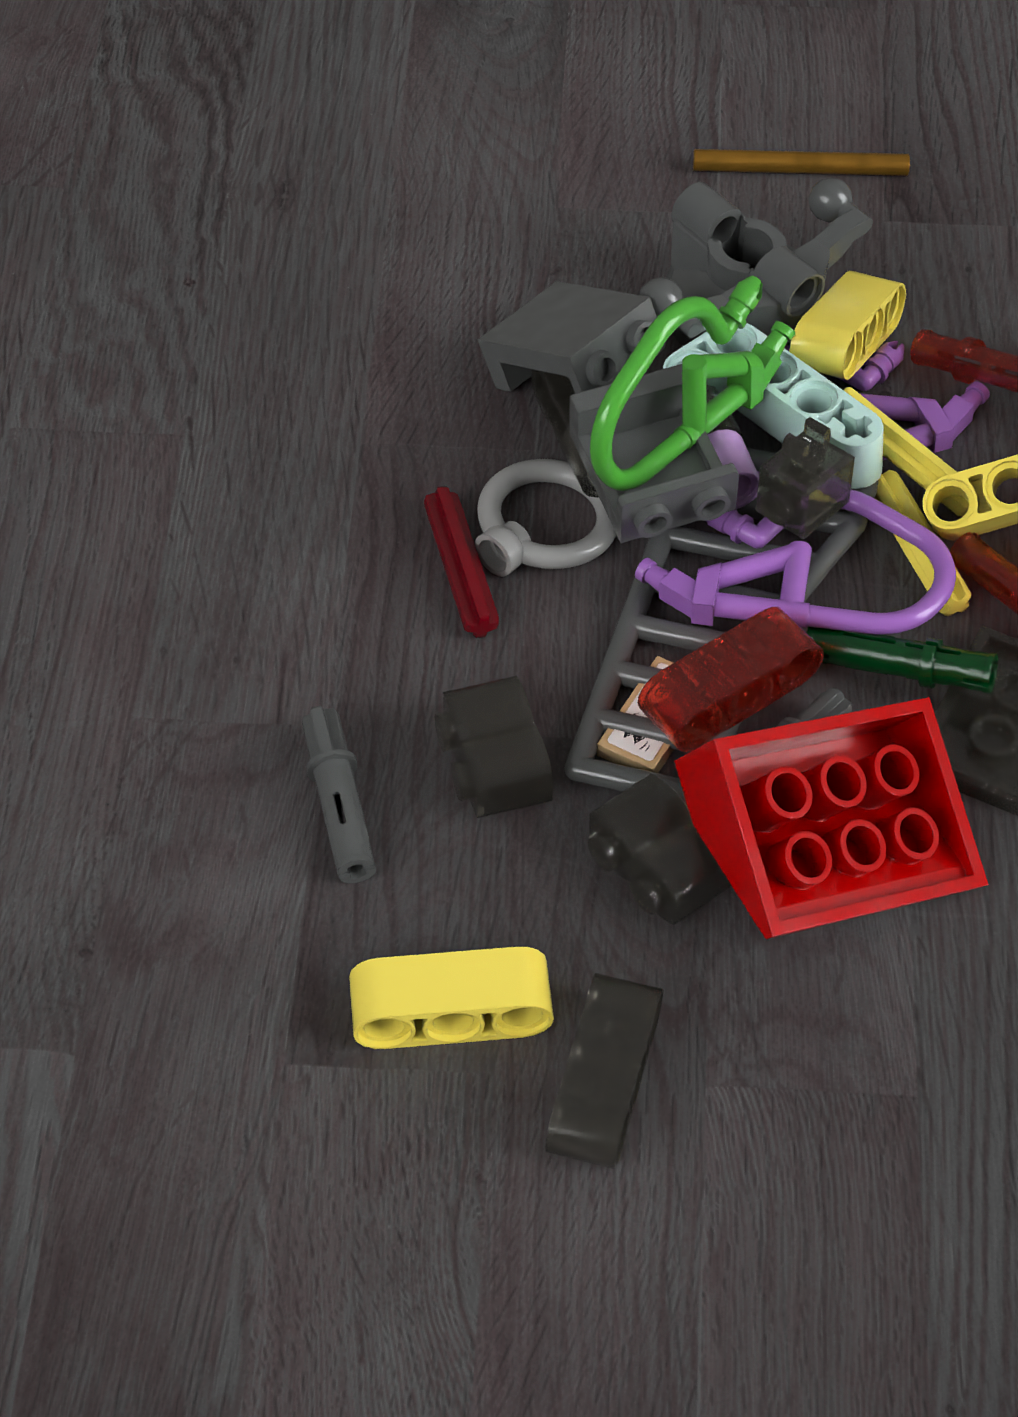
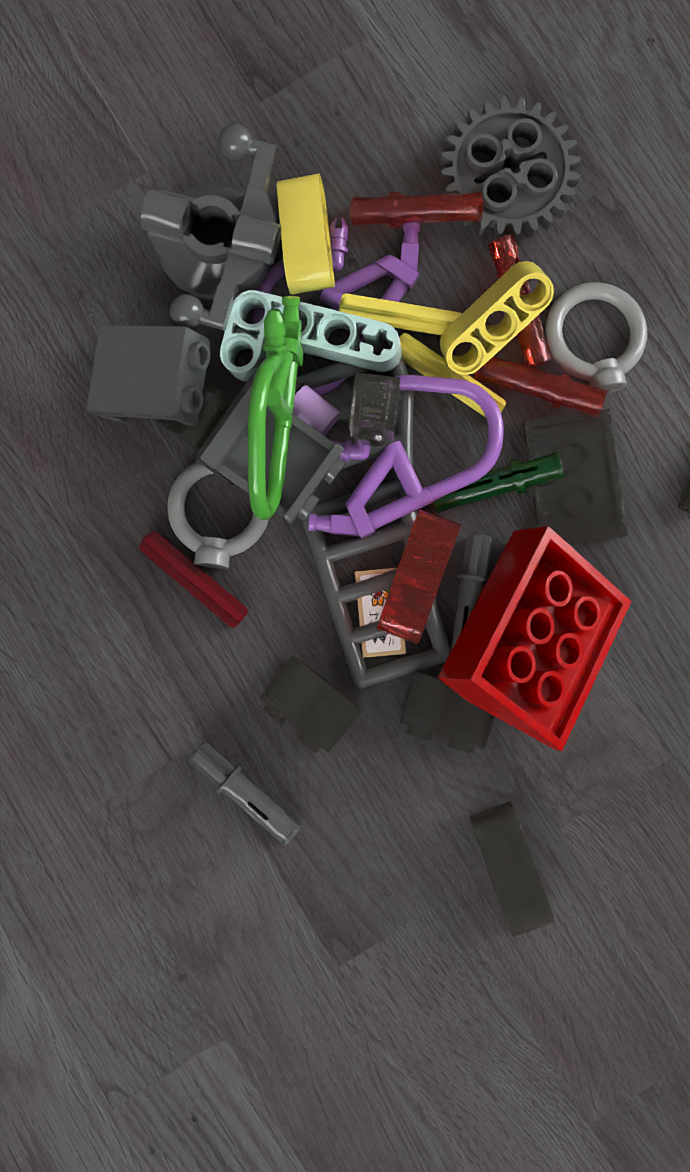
camera: 30 degrees left, 35 degrees up
(450, 997) = (402, 882): light yellow beam -> none
(801, 162) = (173, 88): pearl gold bar -> none

